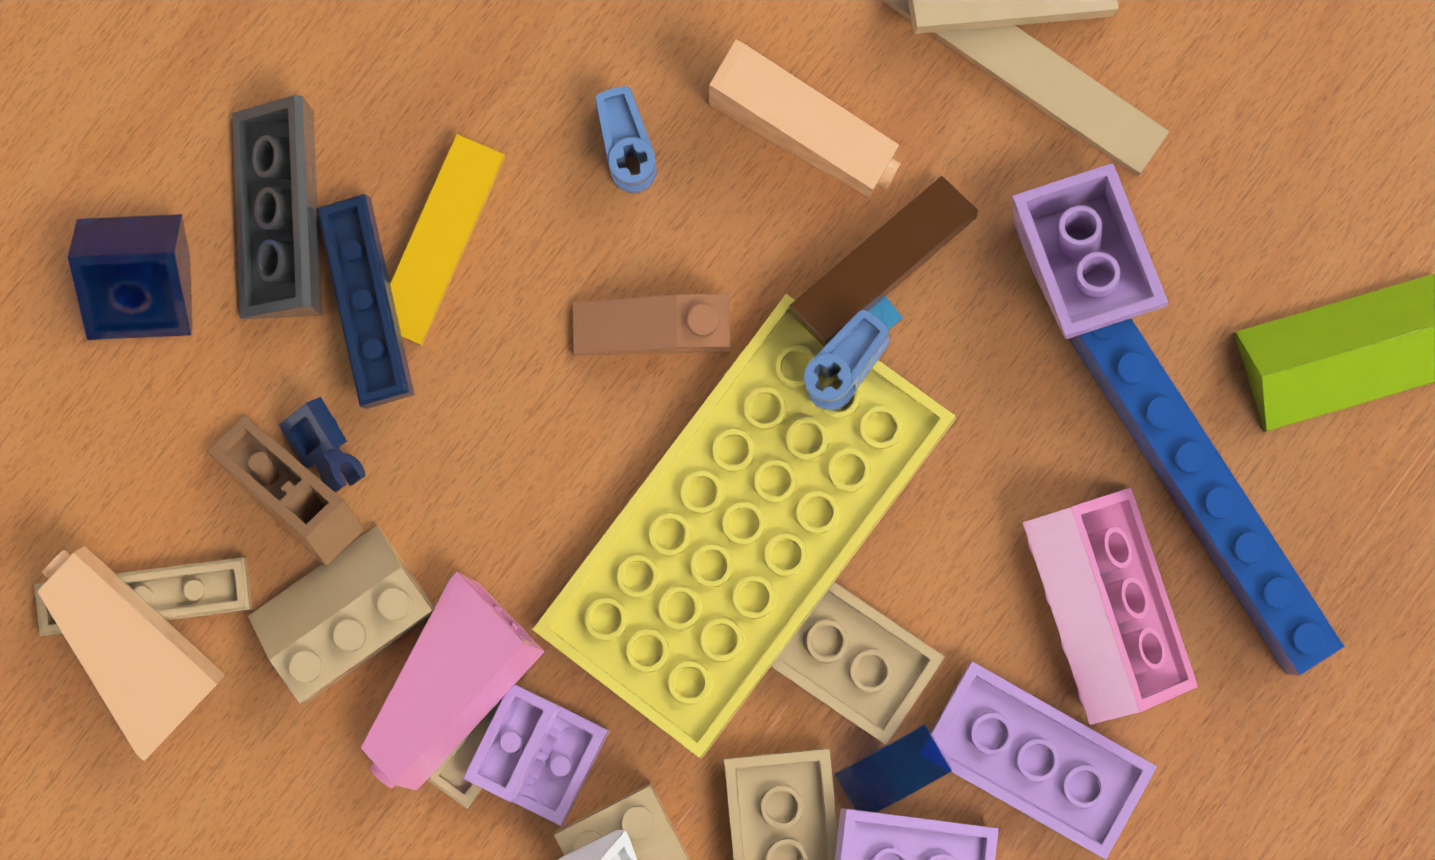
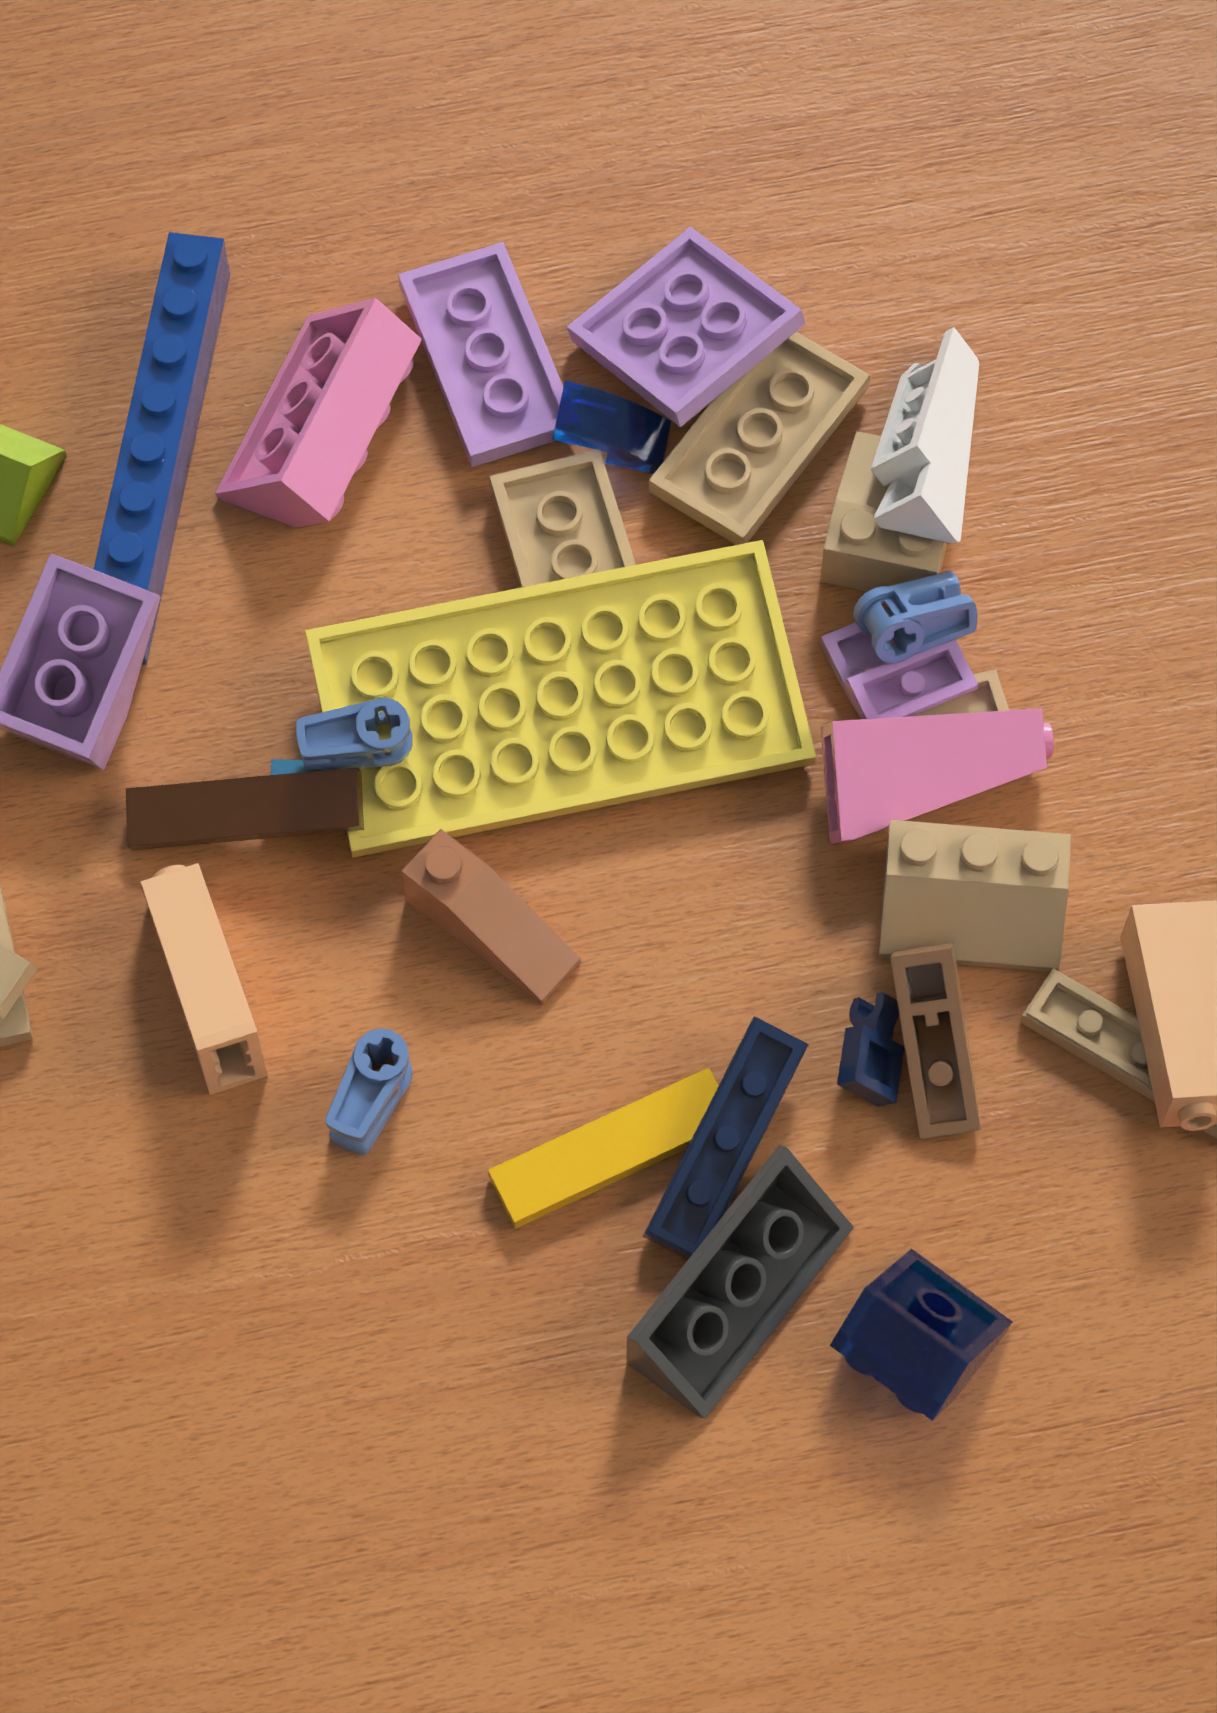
camera: 135 degrees left, 20 degrees down
(539, 774) = (917, 617): none -> medium blue piece

